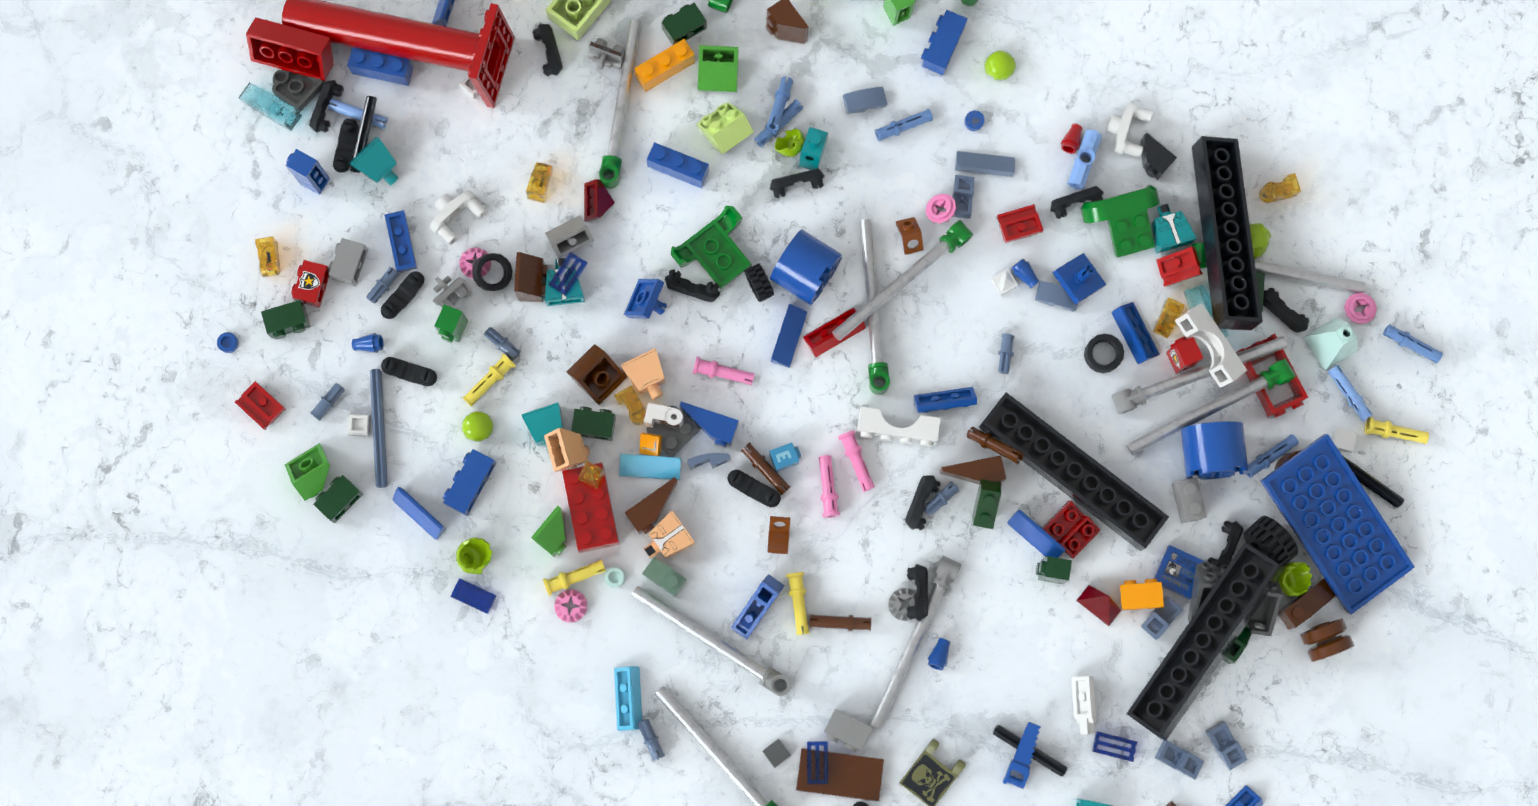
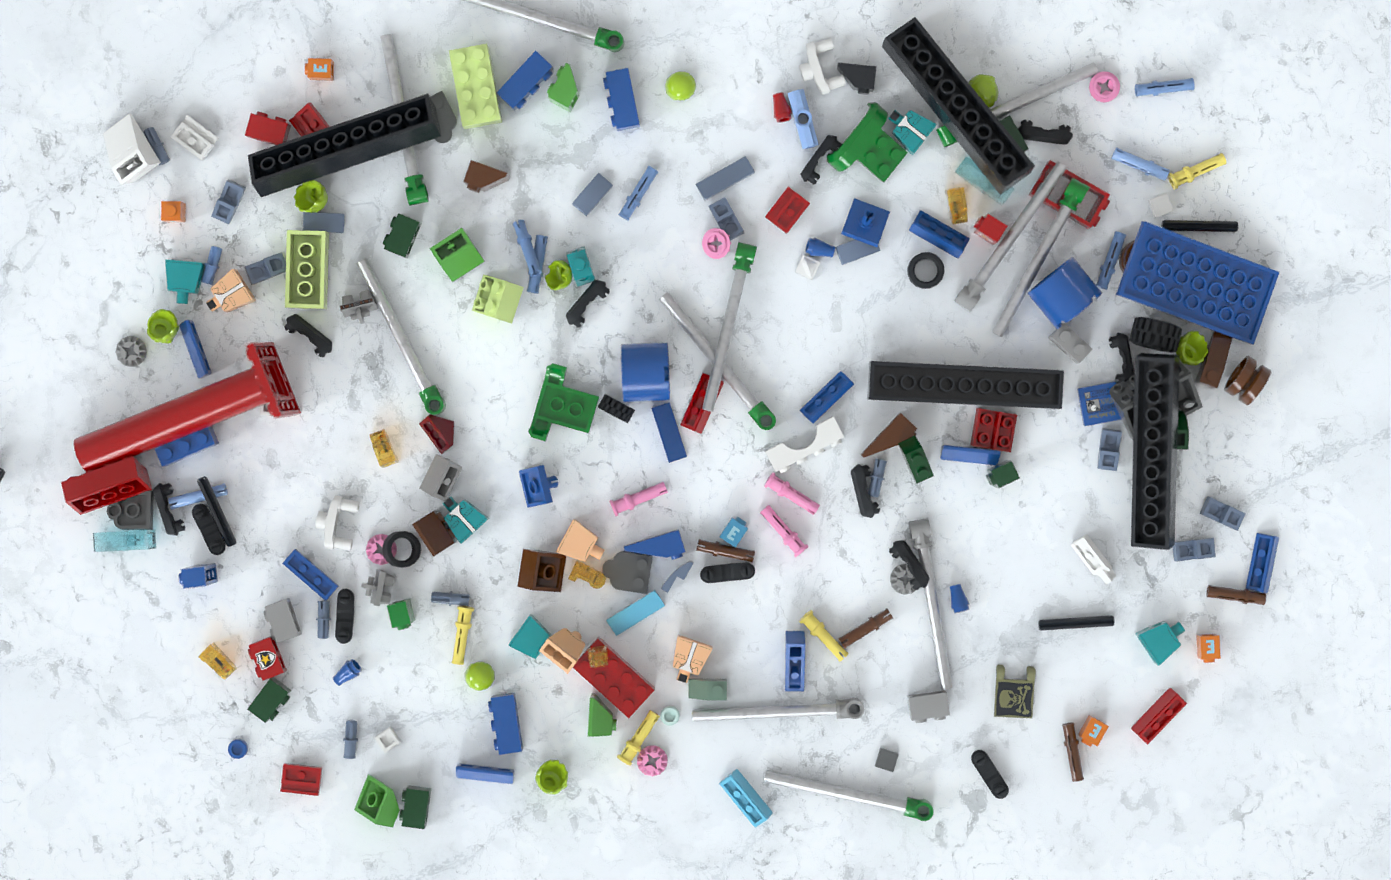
camera: 30 degrees left, 10 degrees up
(375, 162) = (243, 528): teal torso -> none
(378, 428) = (404, 731): sand blue axle -> none
(409, 371) = (395, 671): black piece -> none
(473, 596) = (573, 805): clear blue tile -> none
(558, 288) = (463, 514): clear blue tile -> none
(593, 423) = (568, 611): dark green brick -> none
(648, 510) = (659, 647): reddish brown slope -> none
(650, 444) = (623, 595): light orange tile -> none
(650, 739) = (785, 817): sand blue axle -> none
(663, 415) = (624, 564): white leg -> none
(664, 65) = (412, 281): light orange brick -> none
(677, 165) = (482, 357): blue brick -> none
(677, 283) = (561, 450): black piece -> none
(778, 535) = (773, 596): dark orange bracket -> none
(817, 762) = (913, 733): clear blue tile -> none
(847, 775) = (945, 742): reddish brown tile -> none
(910, 231) = (705, 280): dark orange bracket -> none
(974, 120) = (692, 148): blue tile -> none
(987, 440) = (882, 407): reddish brown pin -> none
(1006, 353) = (848, 325): sand blue axle -> none
(1023, 756) = (1074, 633): blue piece -> none
(1099, 604) = (1054, 474): dark red slope -> none
(1131, 750) = (1153, 569): clear blue tile -> none
(1141, 595) = (1082, 445): light orange brick -> none
(1179, 266) = (938, 157): red plate -> none
(1225, 362) = (1028, 219): white arch -> none
(1279, 191) = (974, 36): clear yellow leg -> none
(1332, 342) = (1099, 132): light aqua slope -> none

